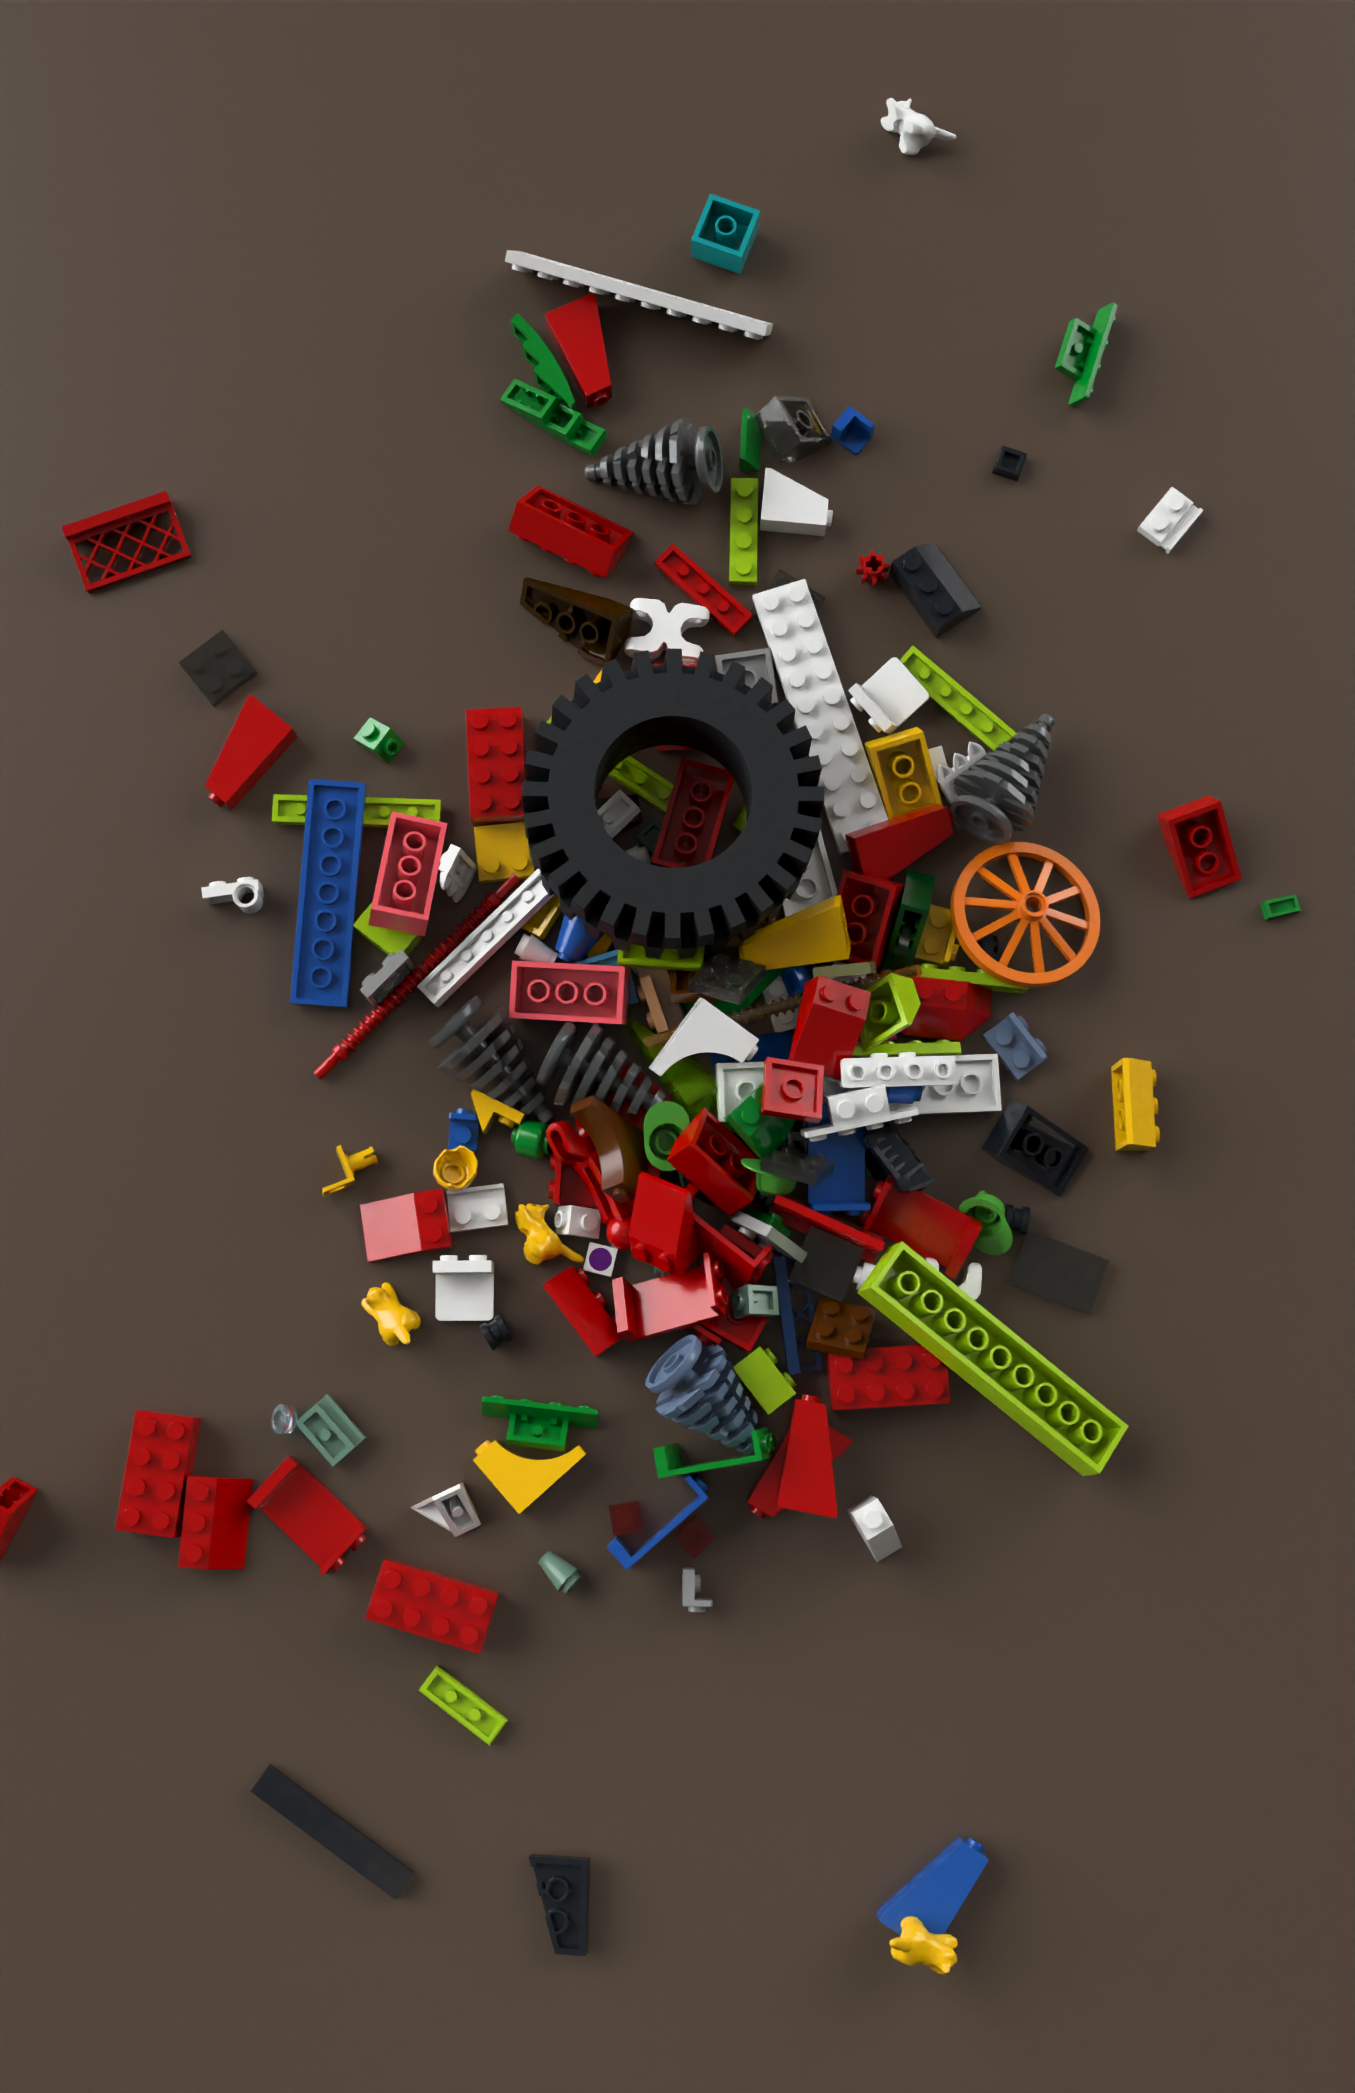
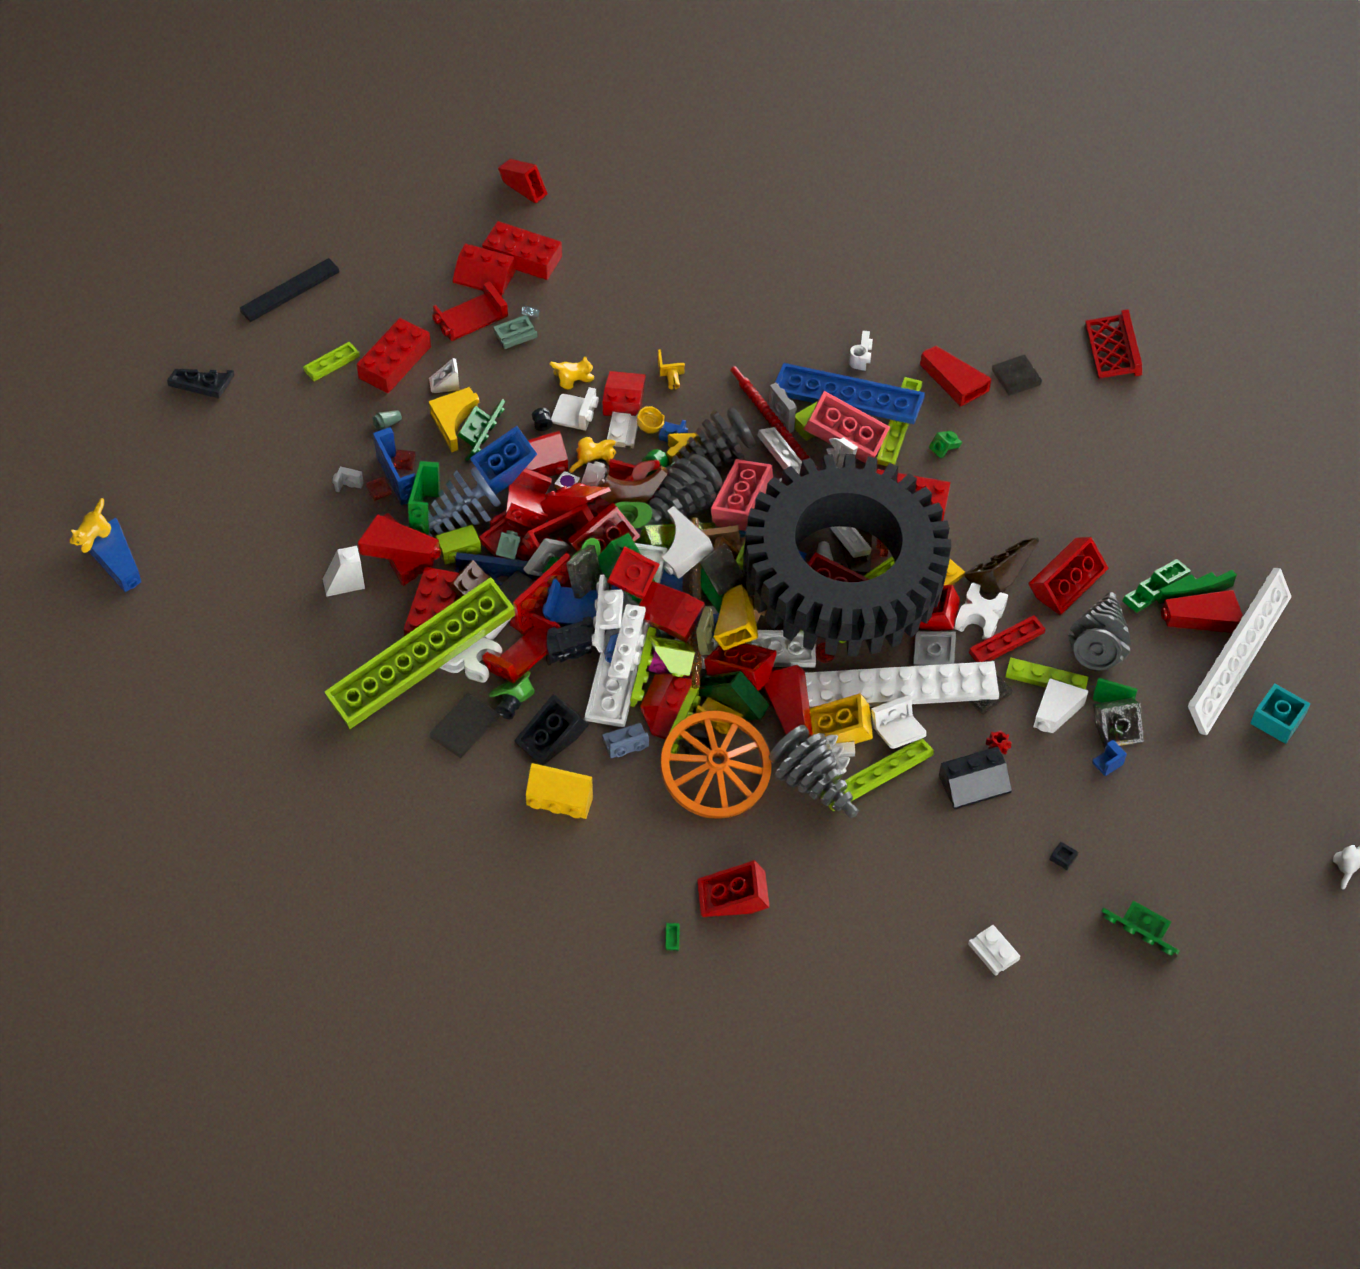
camera: 105 degrees right, 25 degrees down
(625, 1349) = (504, 459): none -> blue slope

